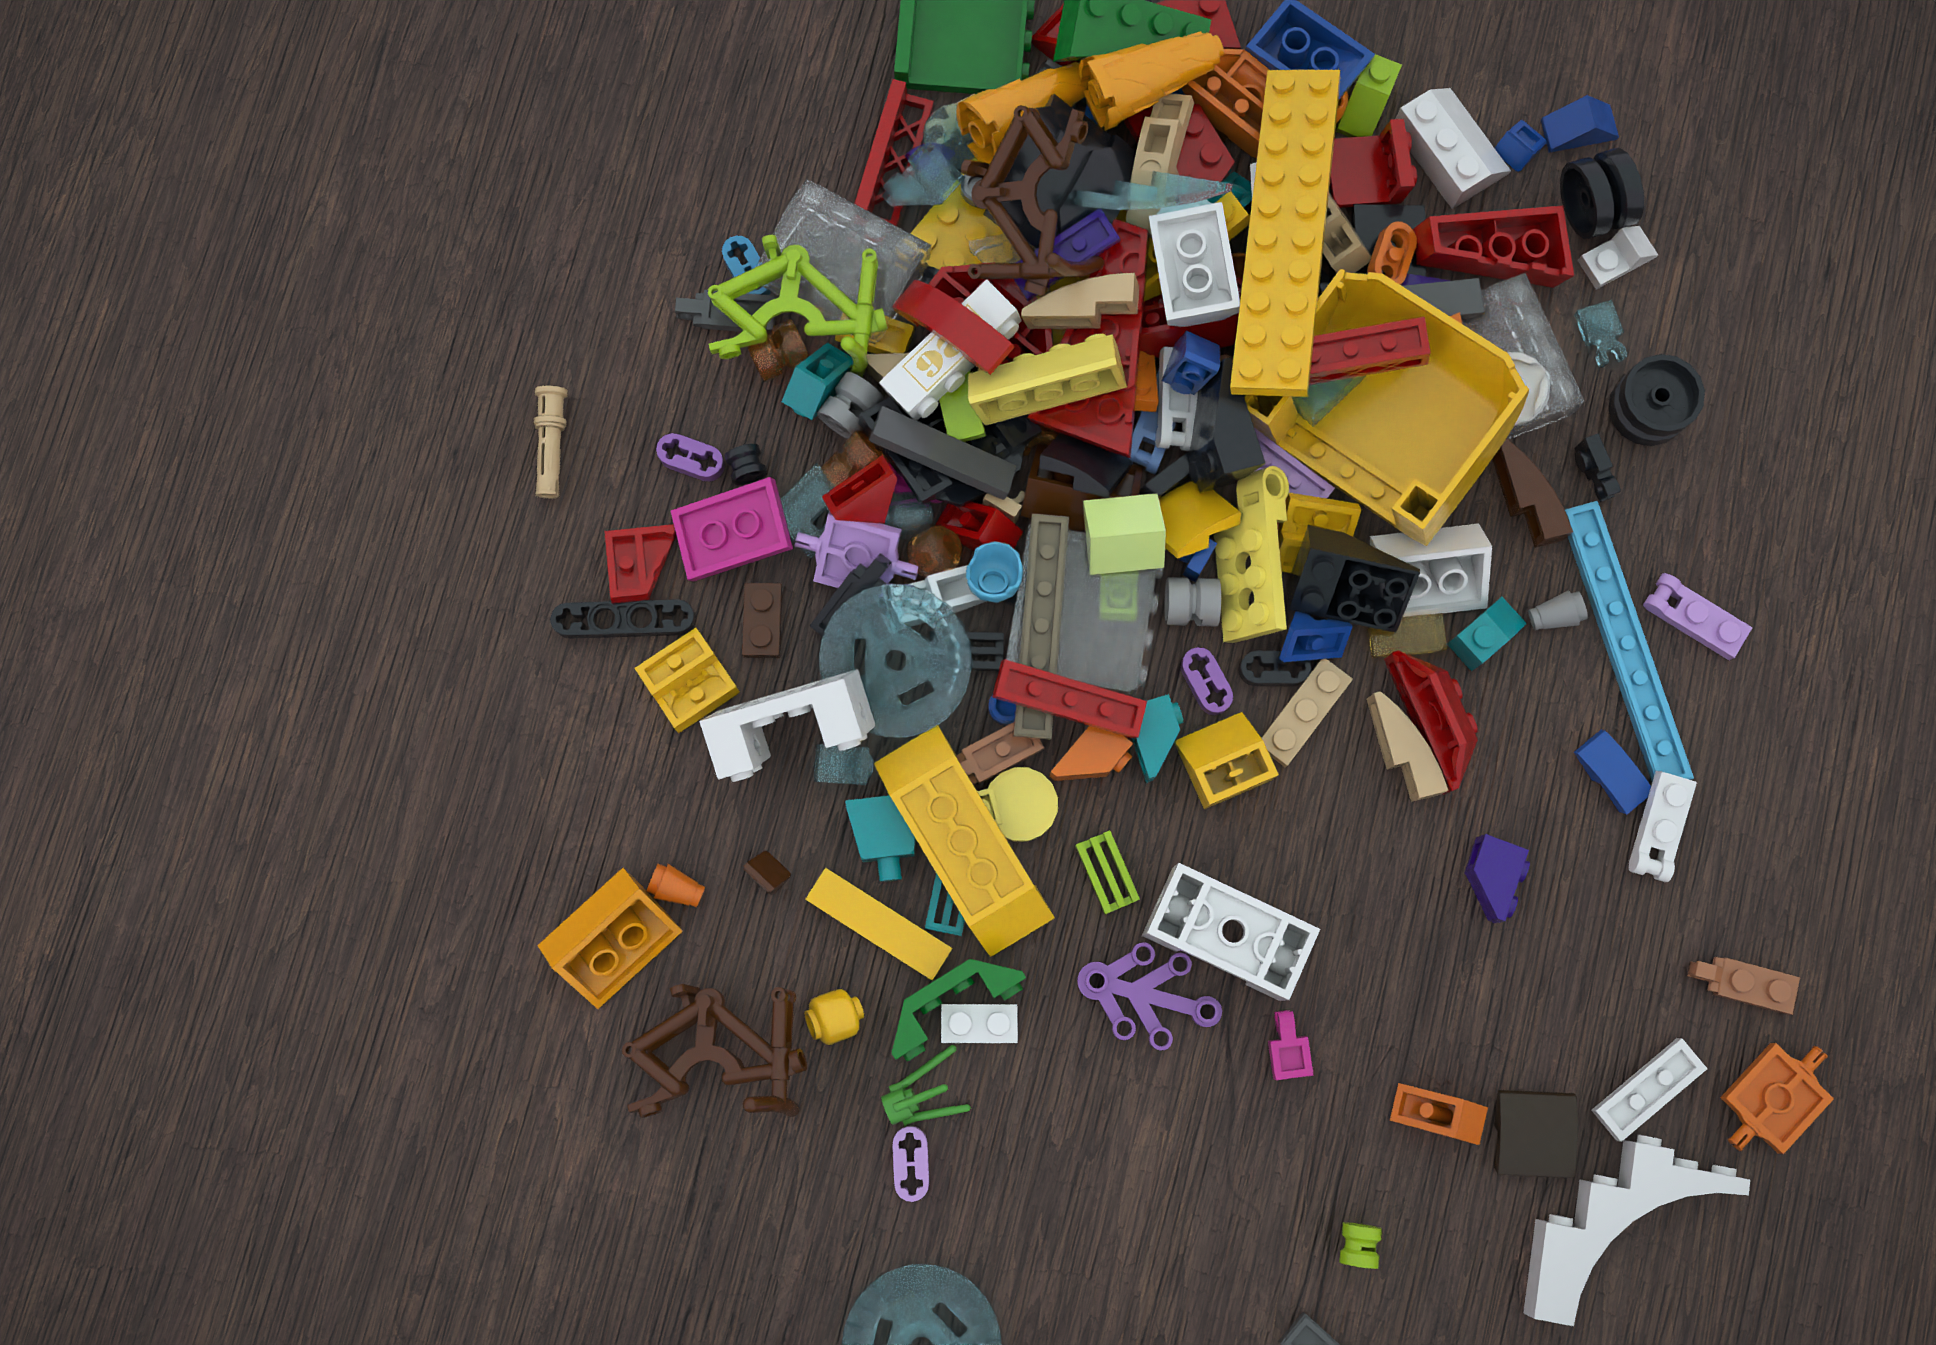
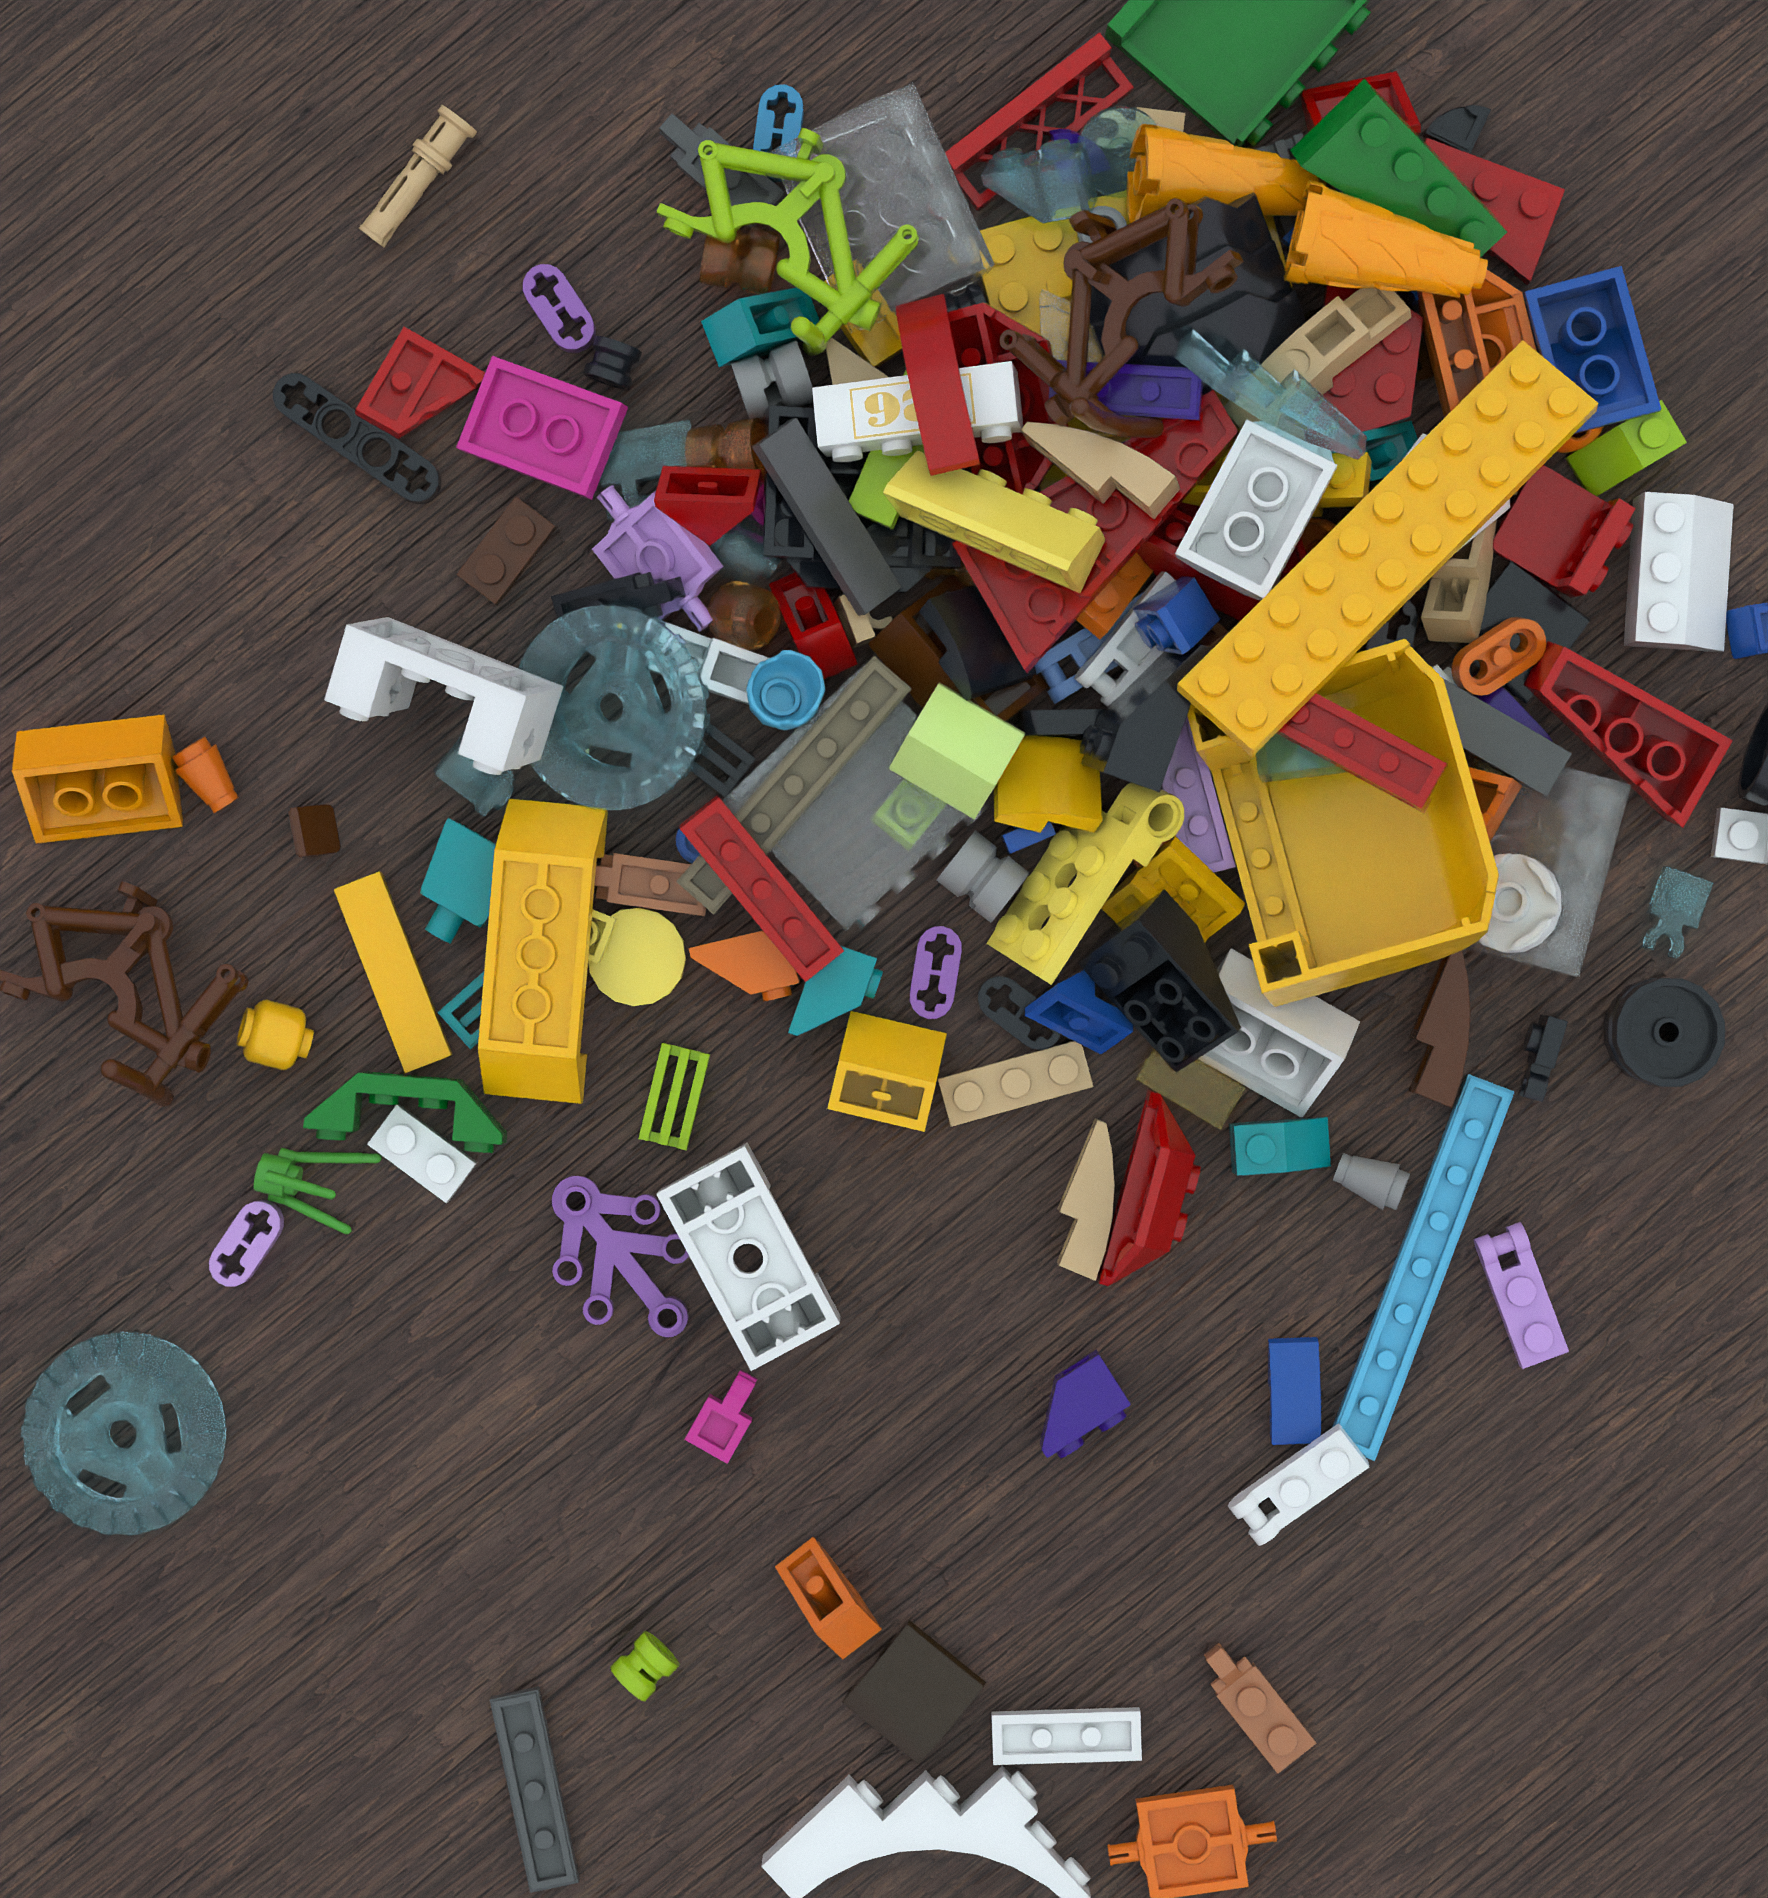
camera: 40 degrees right, 10 degrees up
(687, 680) = (378, 558): yellow slope -> none

